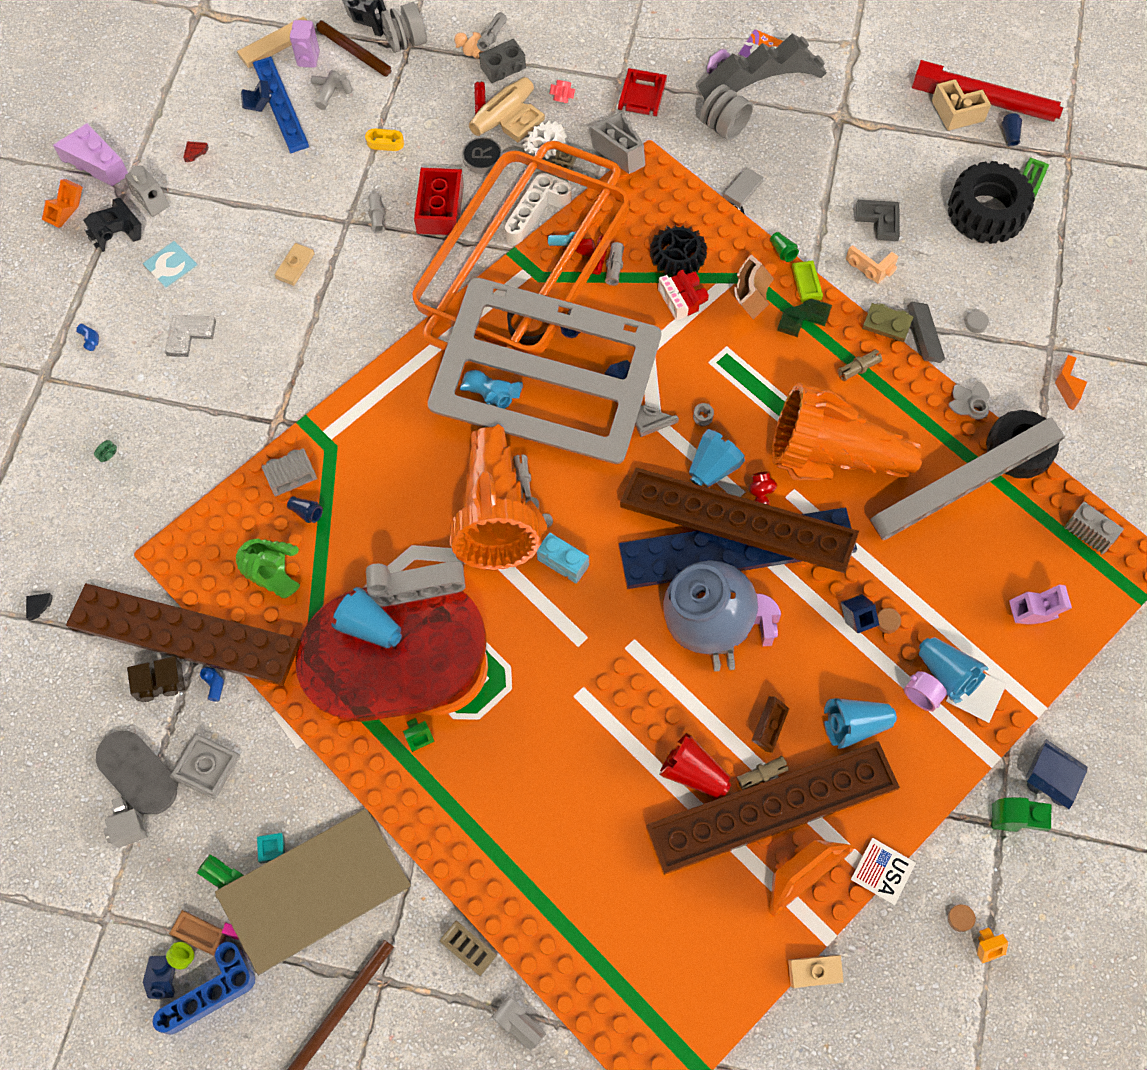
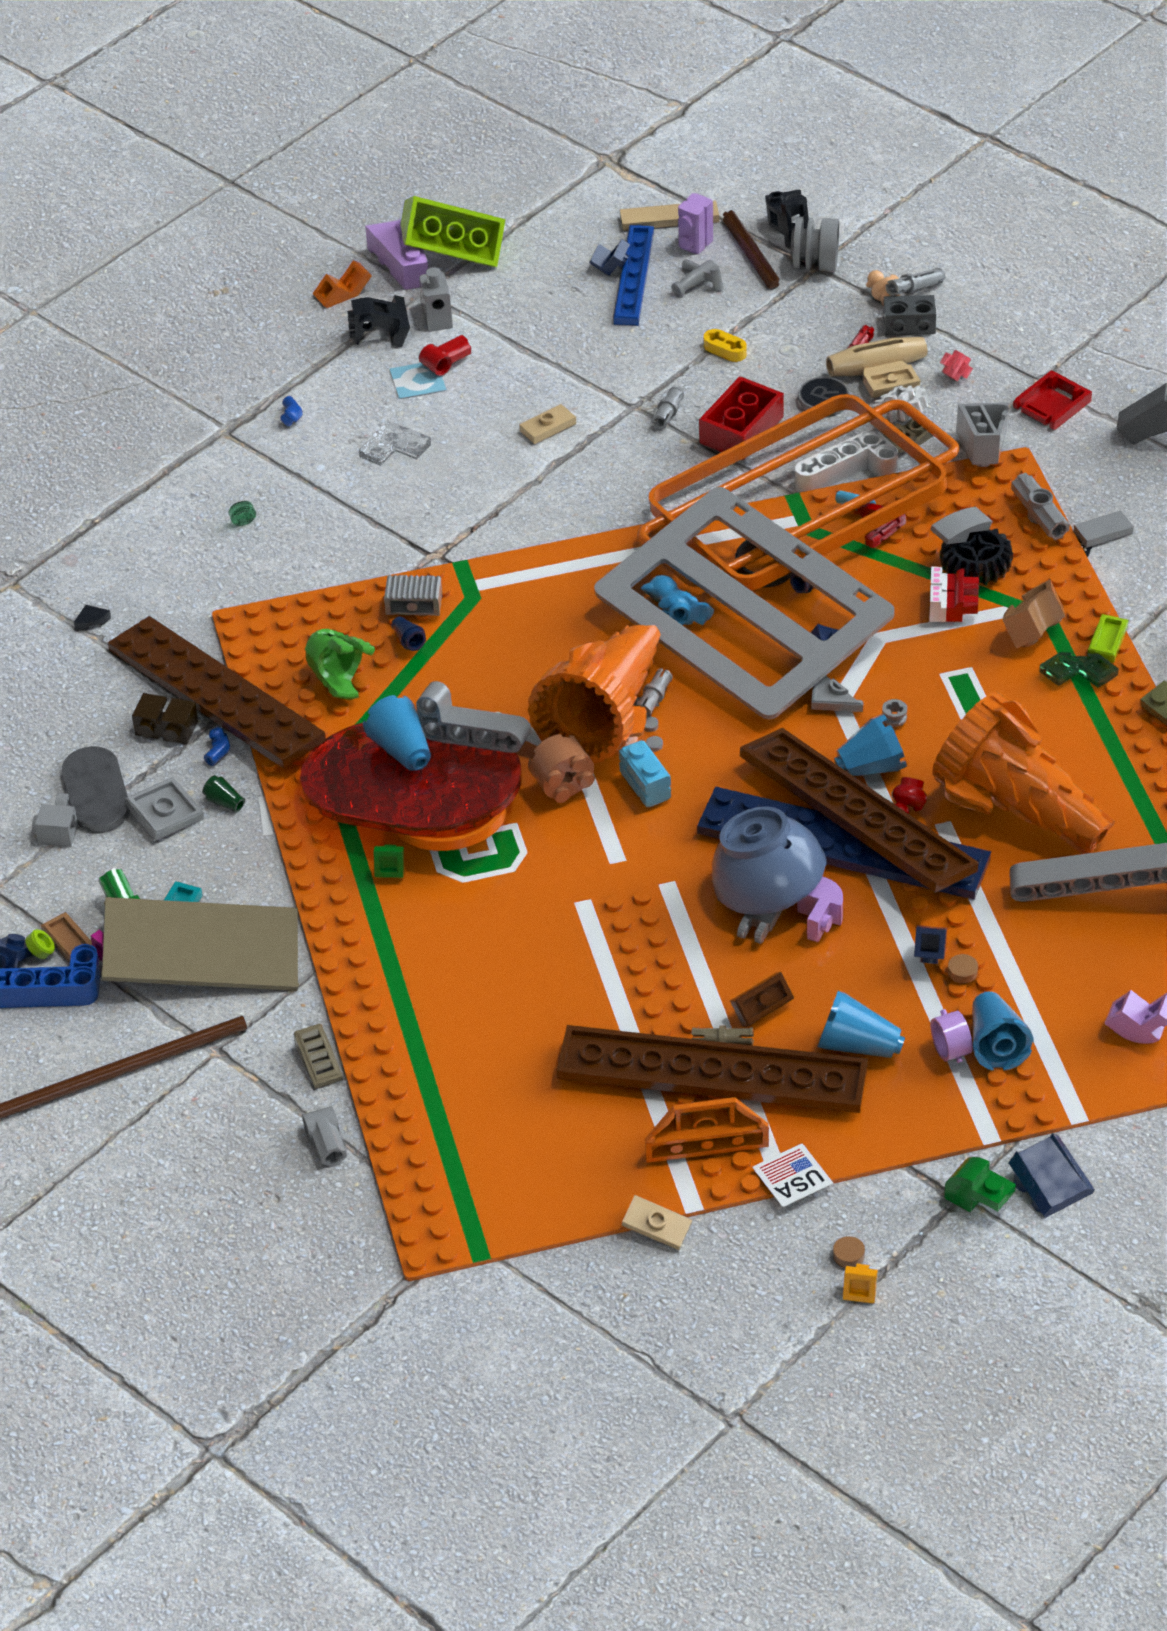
camera: 30 degrees right, 20 degrees down
(124, 124) = (452, 231): none -> lime slope
(179, 239) = (440, 358): none -> red piece
(194, 150) = (512, 284): clear red tile -> none
(243, 728) = (222, 793): none -> dark green cone
(502, 585) = (561, 767): none -> nougat brick
(614, 263) = (896, 542): light grey pin -> none
(661, 234) = (958, 525): none -> light grey slope
(695, 768) = (650, 995): red cone -> none
(696, 189) = (1040, 506): none -> light grey piece
(726, 112) = (1130, 446): light grey wheel -> none
(784, 247) = (1103, 596): green cone -> none
(859, 365) = (1108, 734): dark tan pin -> none
(983, 700) = (1020, 1079): white sticker -> none

